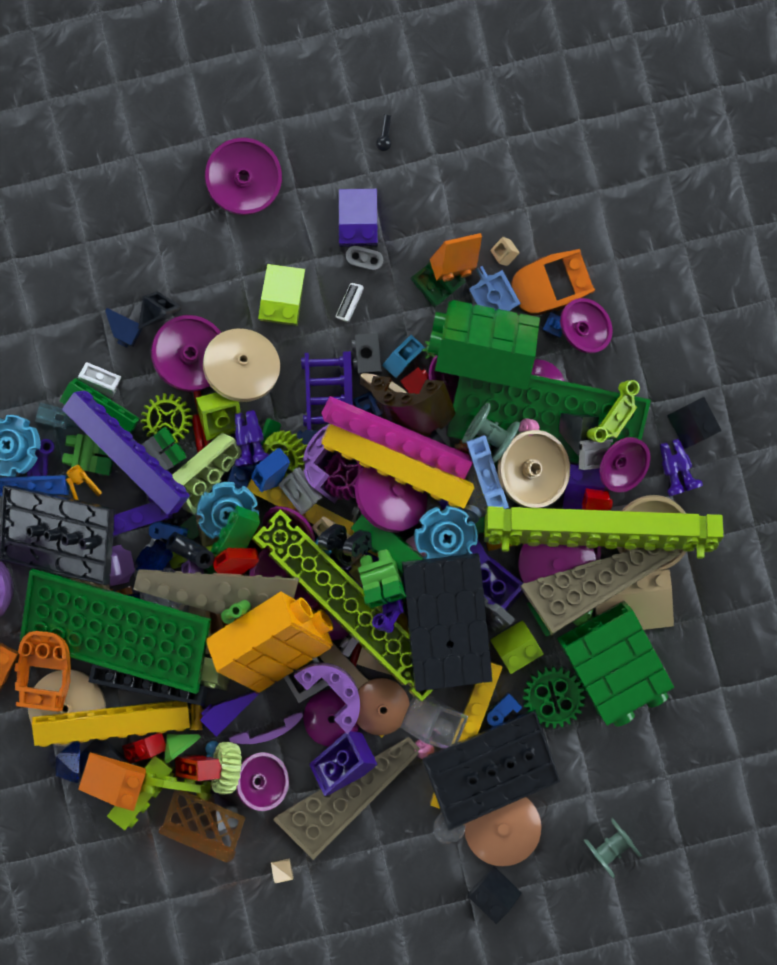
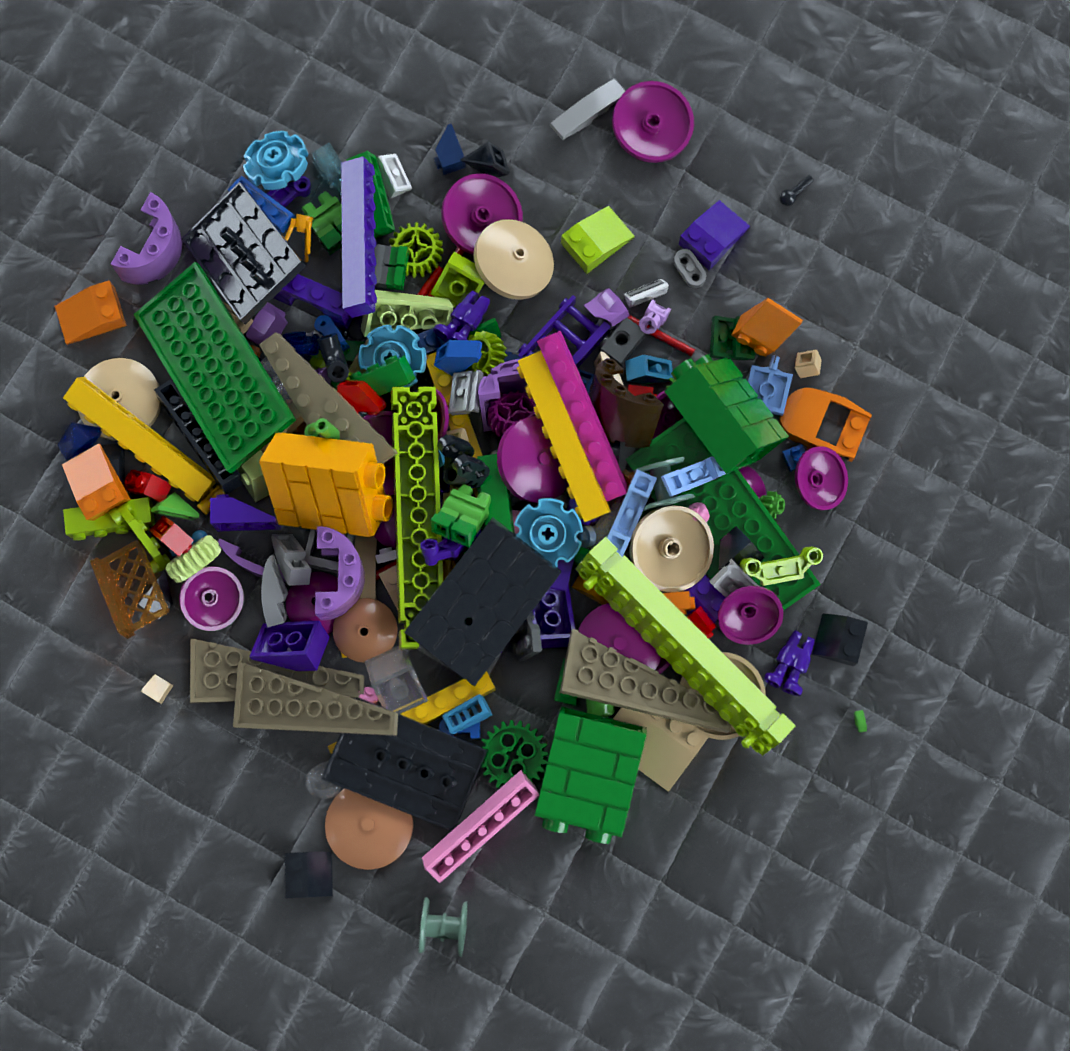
camera: 40 degrees right, 10 degrees down
(43, 651) = (146, 338): orange slope -> none
(189, 207) = (587, 109): none -> light grey slope
(289, 707) = (291, 559): none -> light grey slope
(300, 741) = (273, 593): none -> light grey slope
(335, 340) = (608, 306): none -> medium lavender slope
(373, 316) = (654, 316): none -> lavender connector
(379, 805) = (284, 703): none -> dark tan wing
(384, 324) = (667, 339): none -> red bar
(504, 411) = (692, 476): none -> light blue slope
(506, 684) = (471, 703): none -> dark azure slope
(516, 647) = (521, 686): lime slope -> none
(569, 372) = (773, 503): none -> bright green gear
(571, 499) = (682, 601): none -> orange brick
(576, 763) = (480, 826): none -> bright pink brick
(755, 465) = (860, 721): none -> bright green tile

